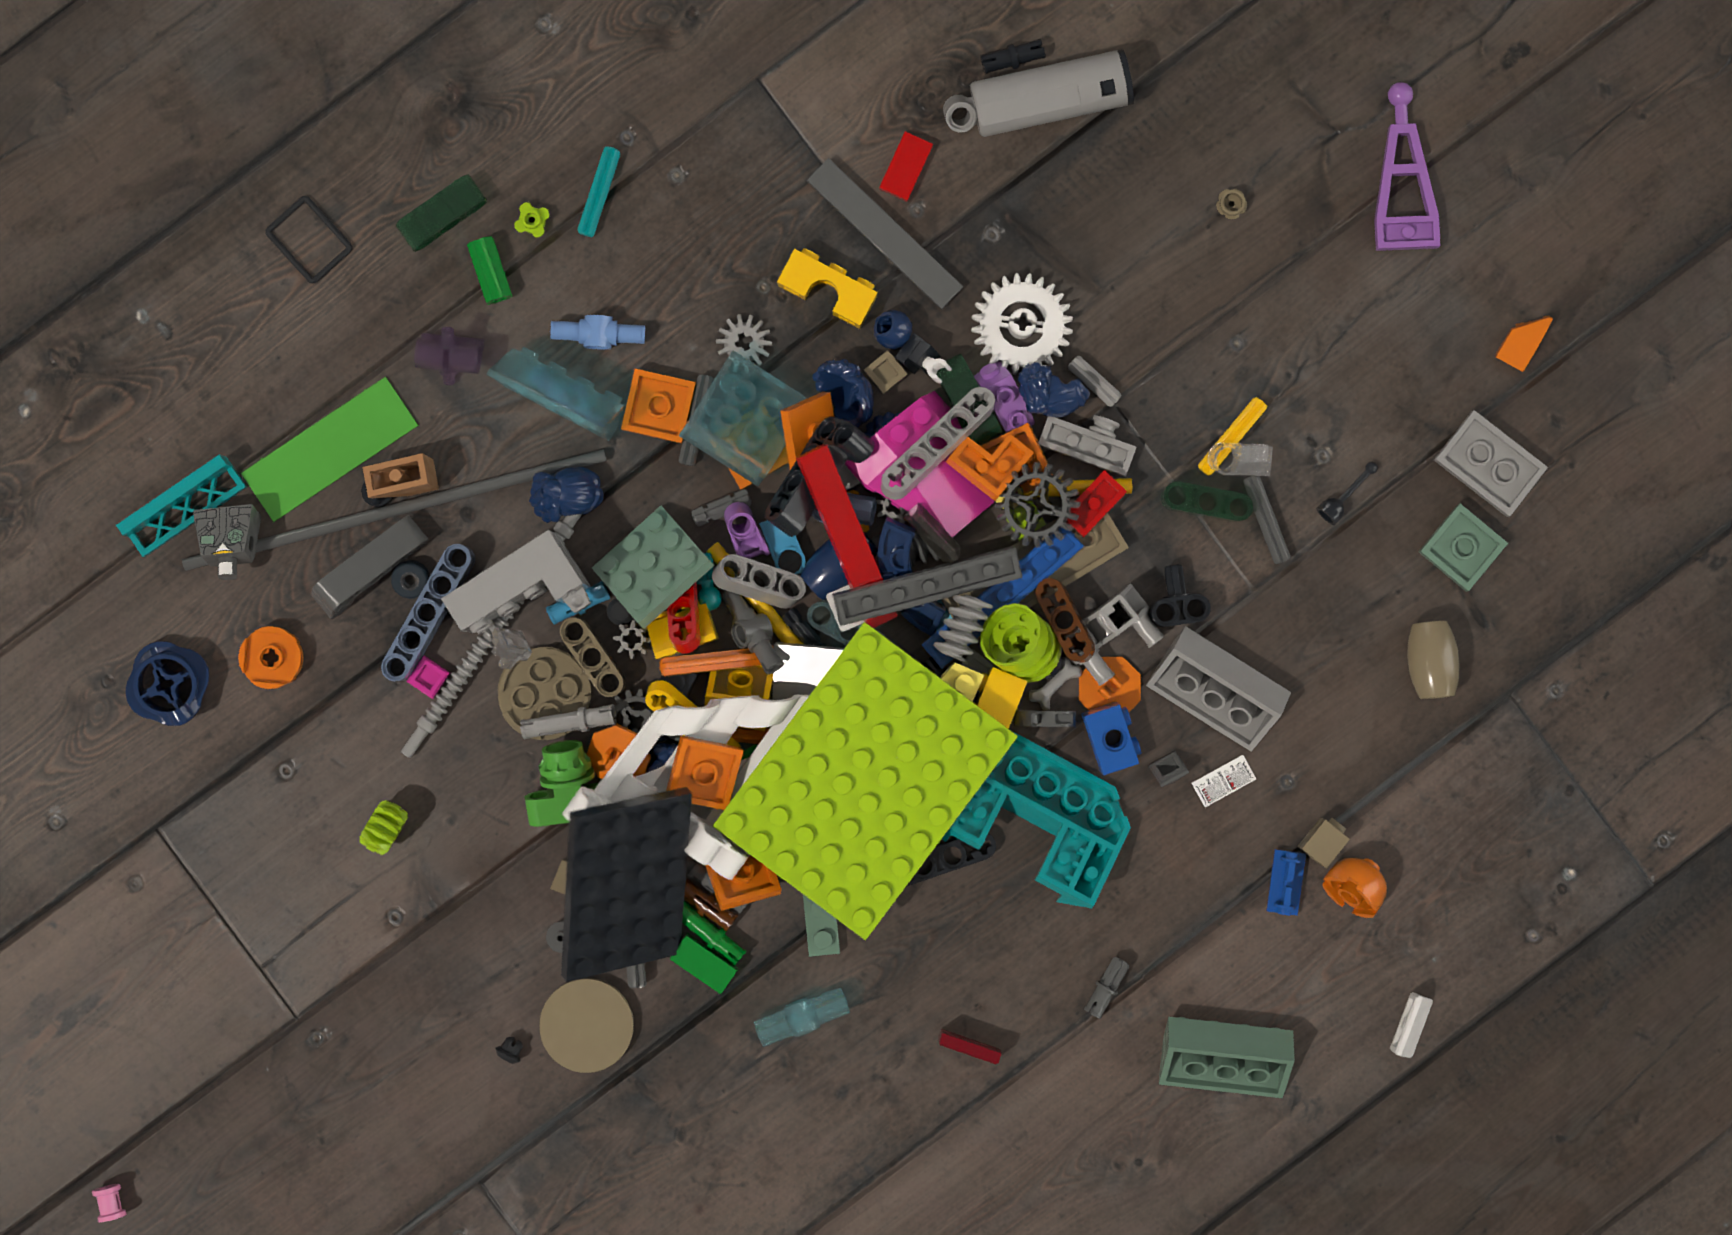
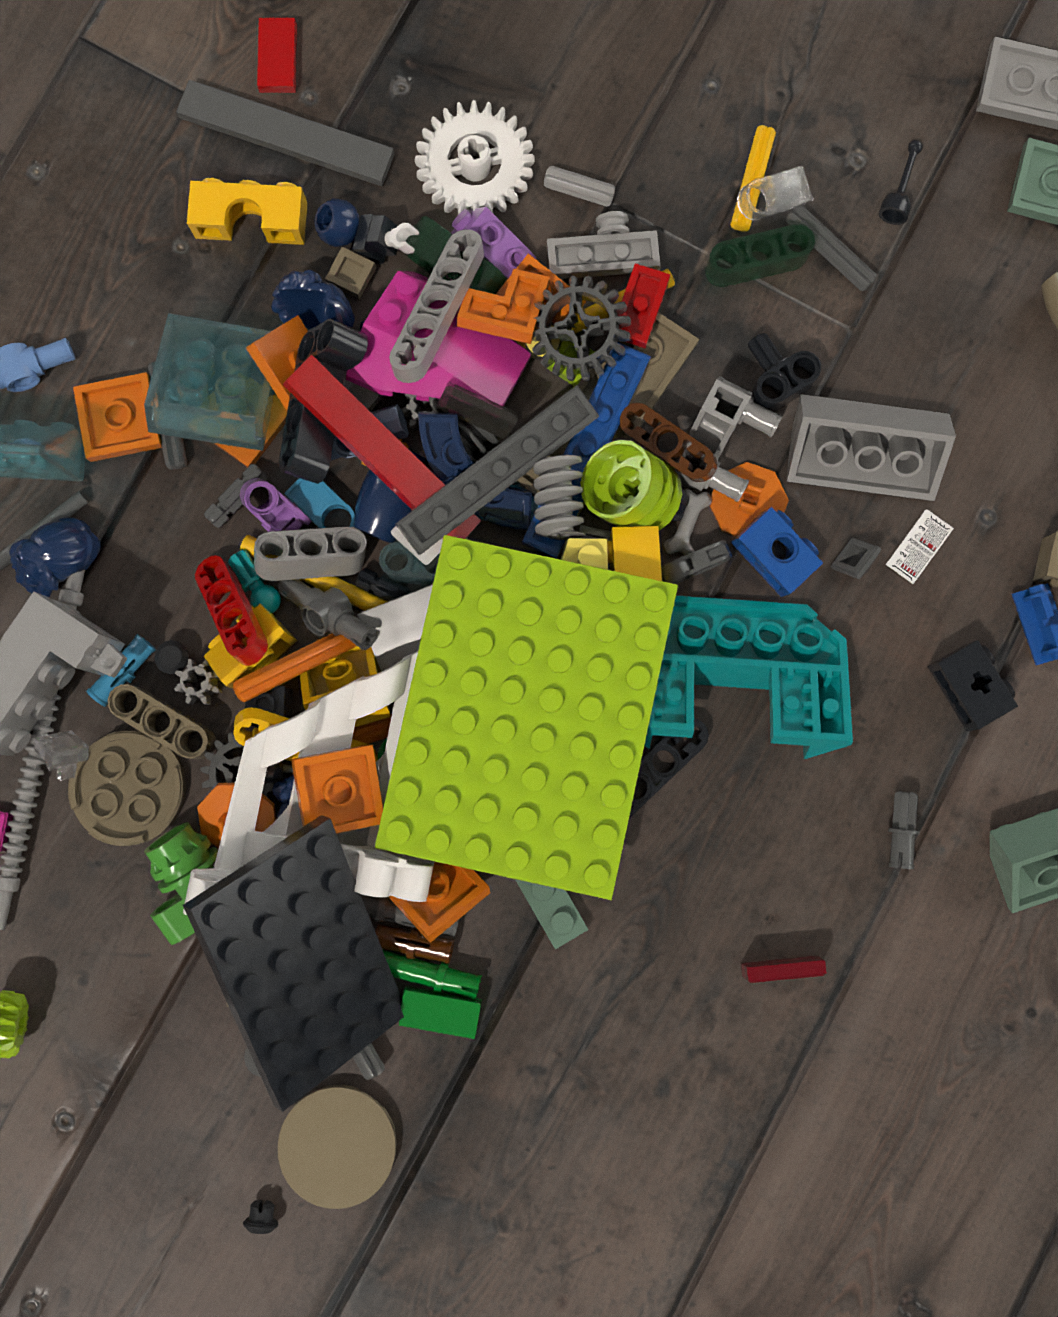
camera: 25 degrees left, 5 degrees down
(582, 720) = (175, 797): light grey pin -> none
(652, 567) = (183, 589): sand green plate -> none
(748, 329) = (183, 295): light grey gear -> none
(801, 1017) = (577, 1023): clear light blue piece -> none
(1048, 394) = (537, 209): dark blue hair -> none
(1203, 921) = (956, 674): none -> black brick

